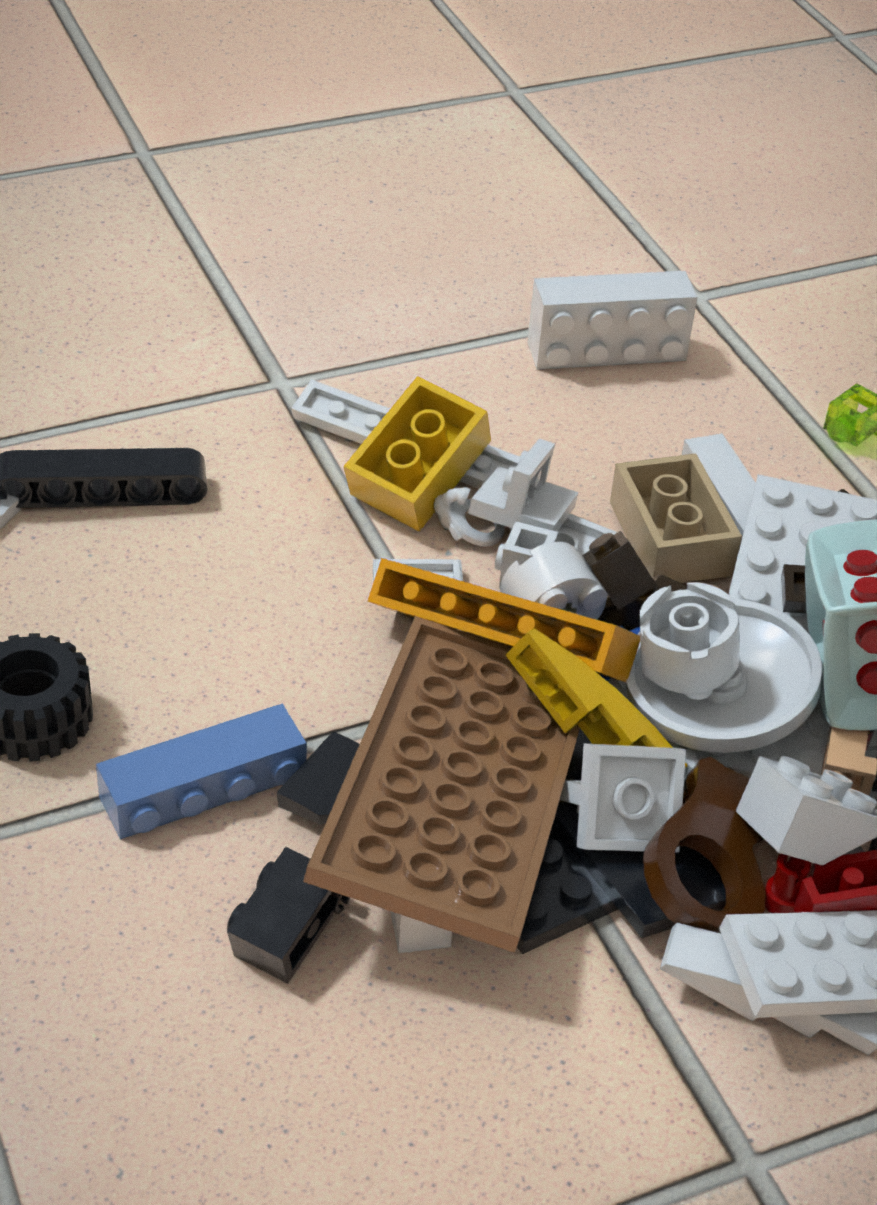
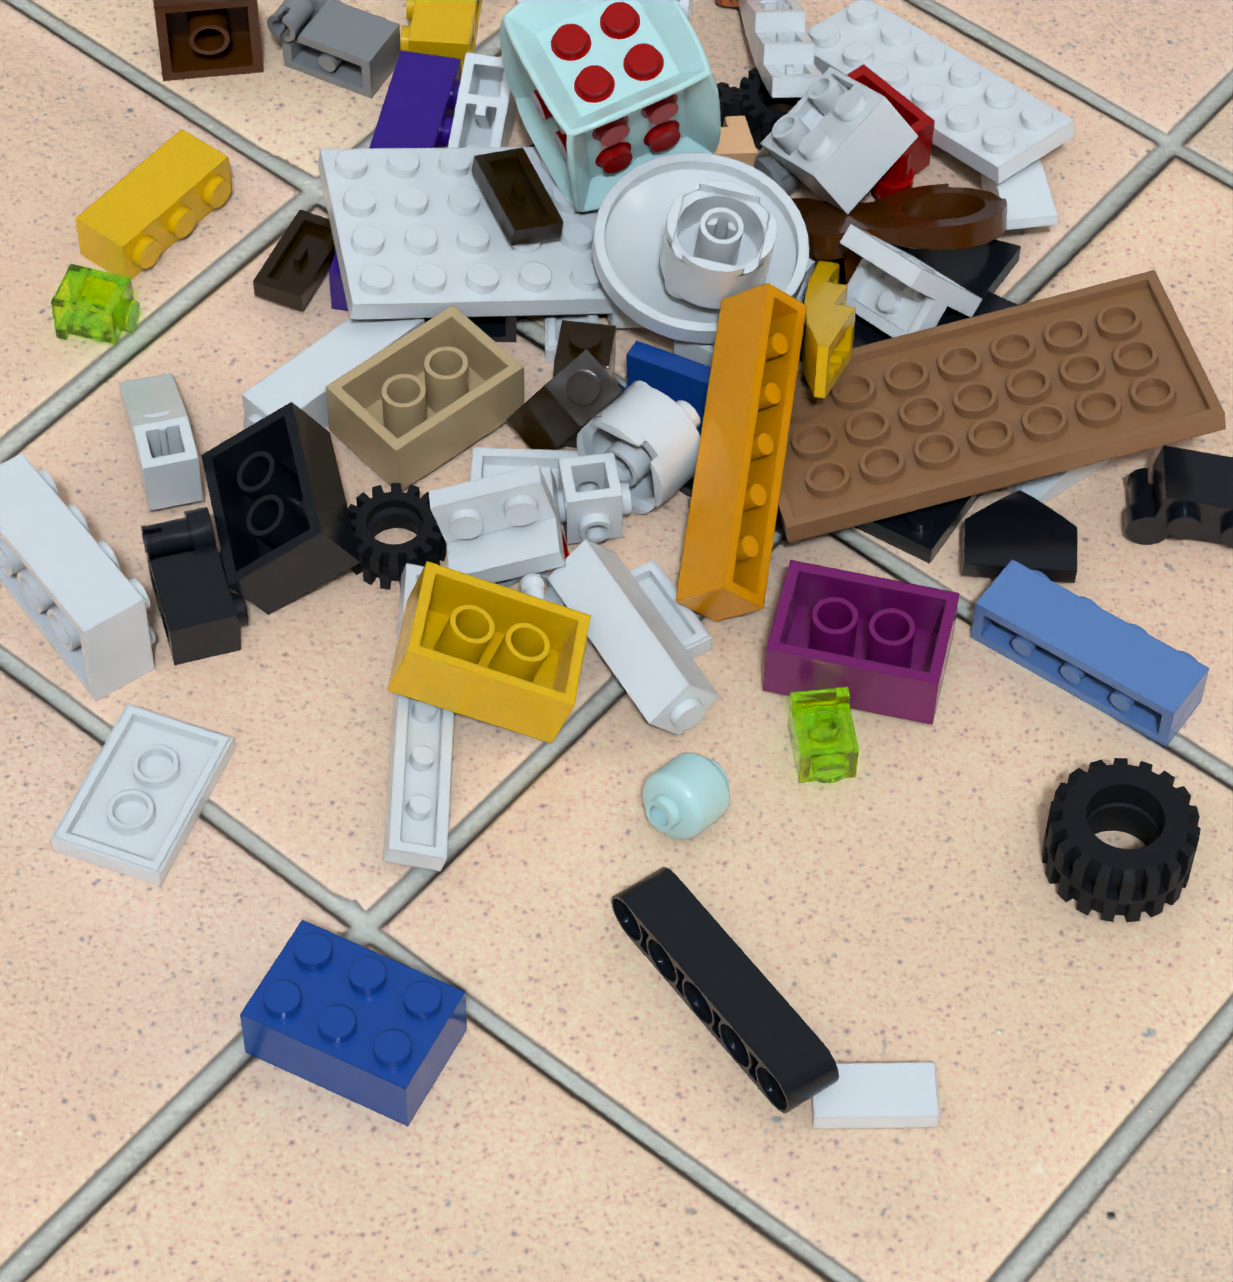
camera: 115 degrees left, 10 degrees up
(209, 337) = (354, 1022): none -> blue brick
(246, 602) = (822, 735): none -> clear neon green brick
(251, 517) = (688, 793): none -> light aqua head
(300, 638) = (861, 634): none -> magenta brick
(392, 537) = (634, 638): none -> white brick
(441, 333) = (143, 794): none -> white tile
(576, 380) = (193, 588): none -> black hinge
(585, 473) = (392, 511): none -> black tyre
(605, 415) = (279, 508): none -> black brick
(710, 401) = (162, 441): none -> white slope

